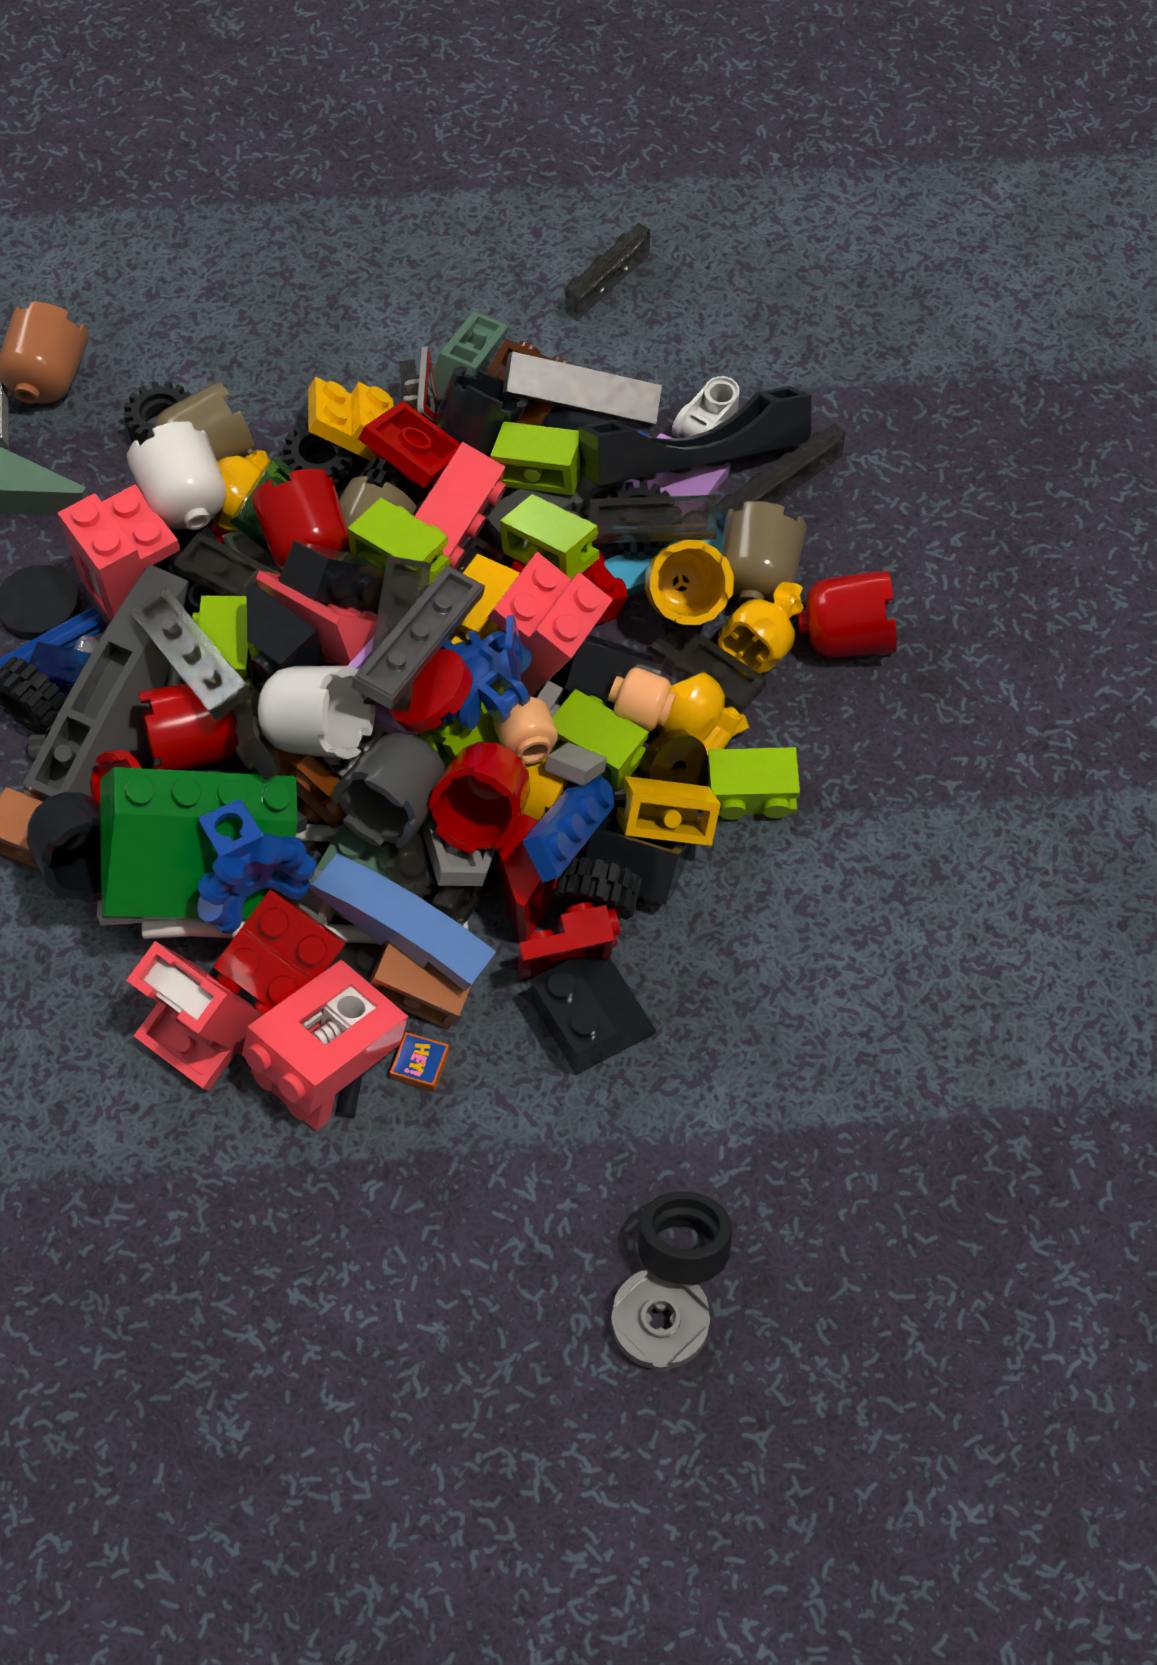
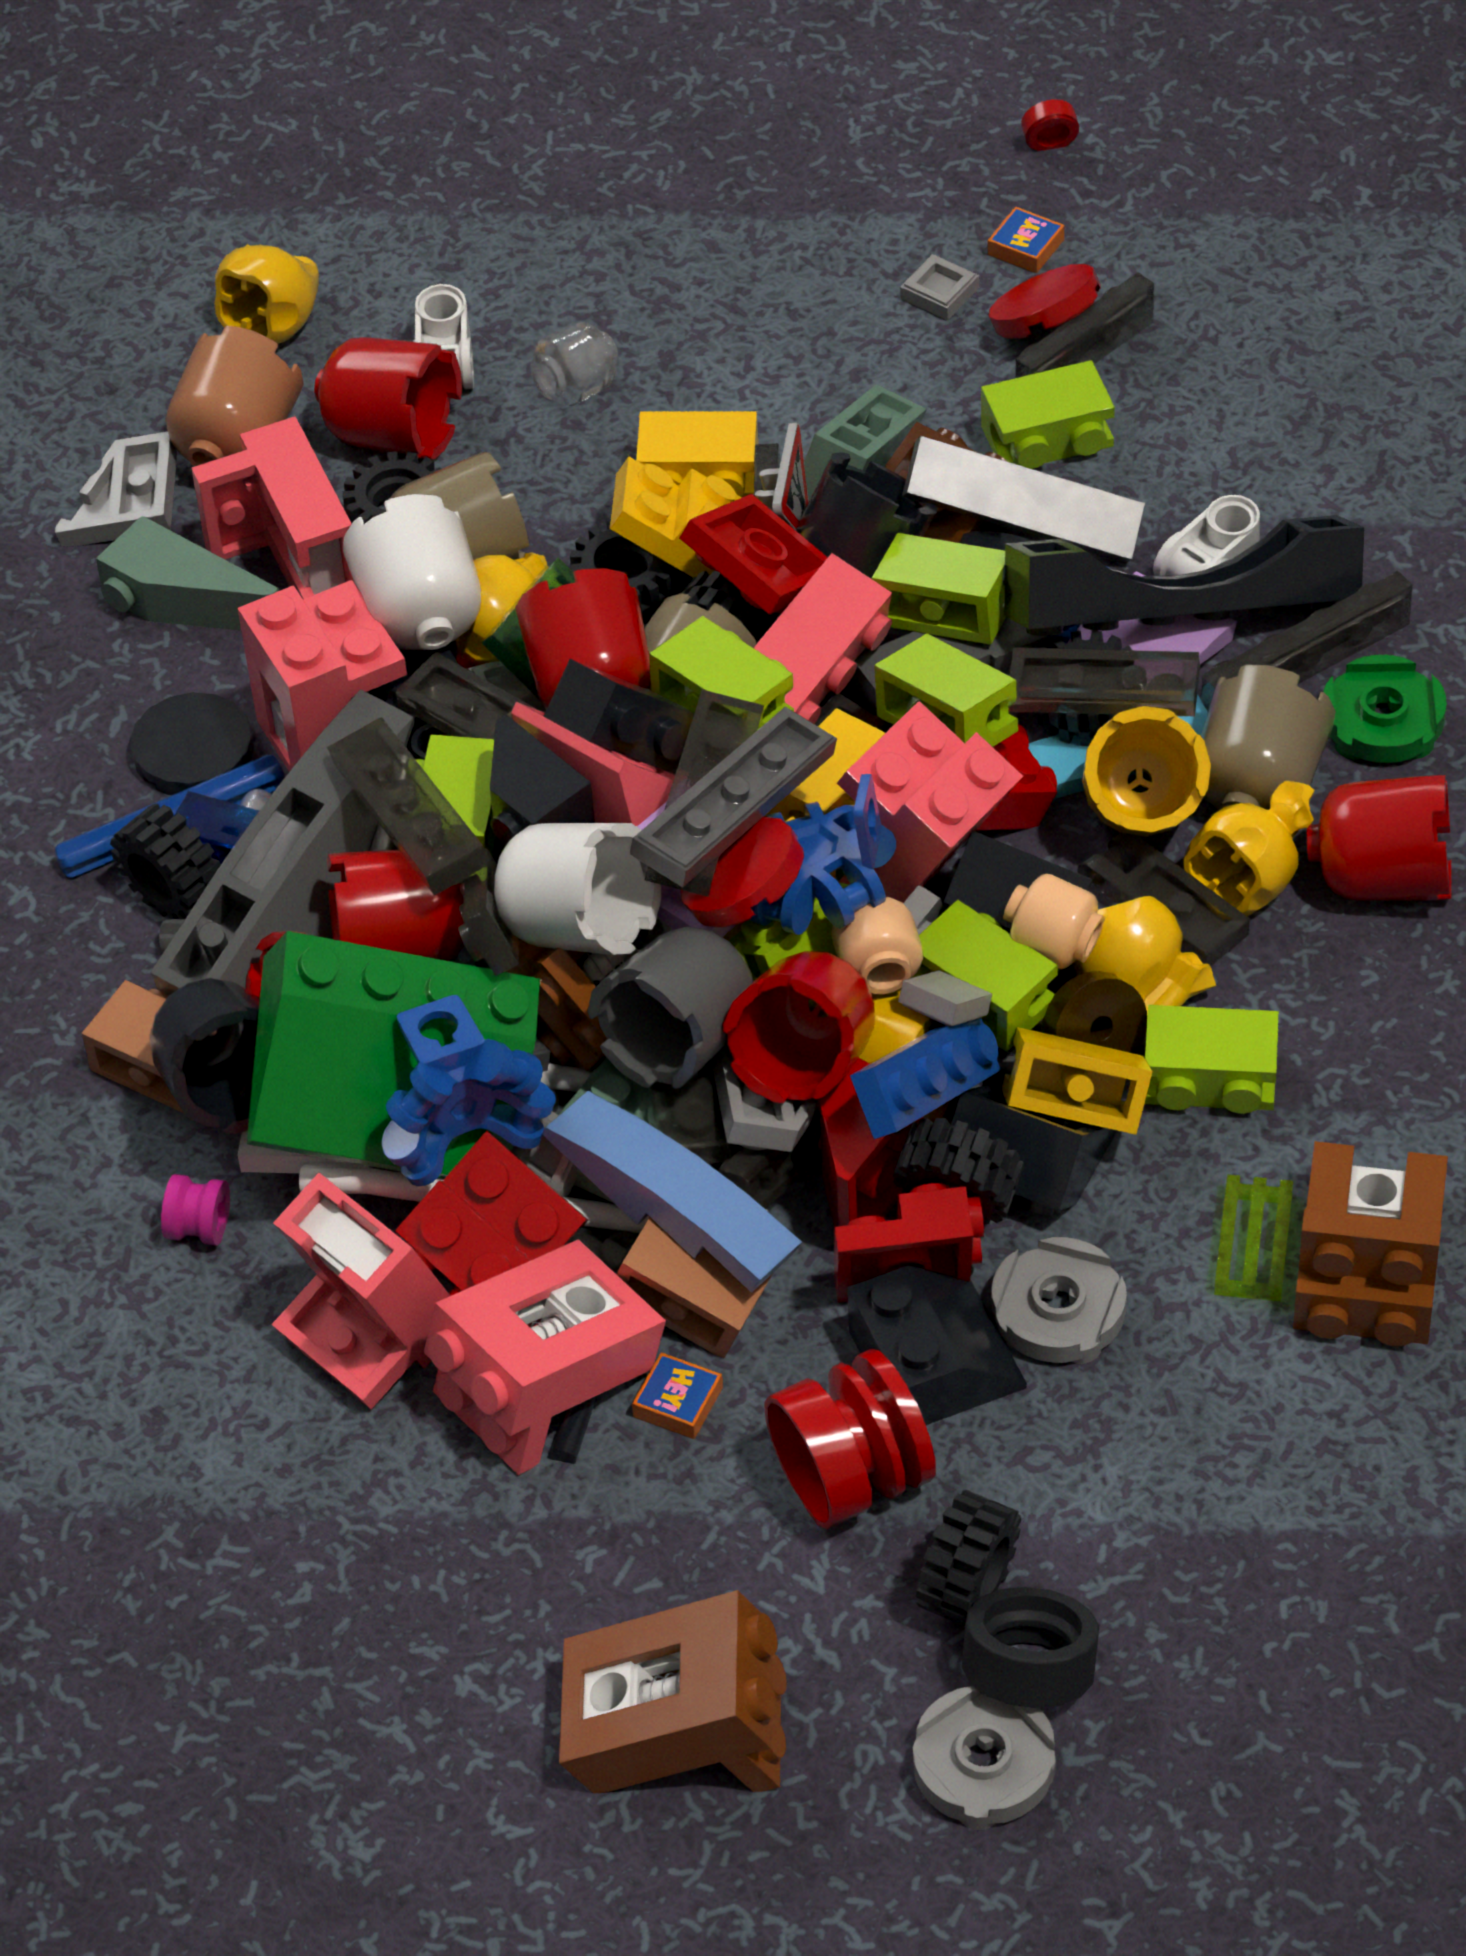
camera: 10 degrees right, 10 degrees down
(57, 272) = (265, 291): none -> yellow piece
(71, 952) = (195, 1209): none -> dark pink wheel
(81, 422) = (278, 499): none -> coral brick
(148, 341) = (390, 395): none -> red cylinder
(180, 297) = (444, 321): none -> white piece
(271, 309) = (574, 363): none -> clear head
(367, 361) = (701, 440): none -> yellow brick
(478, 1293) = (674, 1697): none -> dark orange brick
(507, 239) = (939, 287): none -> light grey tile
(551, 1088) = (850, 1438): none -> red wheel
(560, 202) = (1026, 239): none -> tile
(567, 122) = (1050, 125): none -> red tile
(580, 244) = (1045, 298): none -> red tile
(589, 326) = (1048, 415): none -> lime brick
(635, 1175) = (967, 1555): none -> black tyre
(668, 993) = (1059, 1333): none -> light grey plate
(796, 875) = (1258, 1195): none -> clear neon green tile
(841, 538) = (1391, 737): none -> green plate
(876, 925) = (1368, 1264): none -> dark orange brick

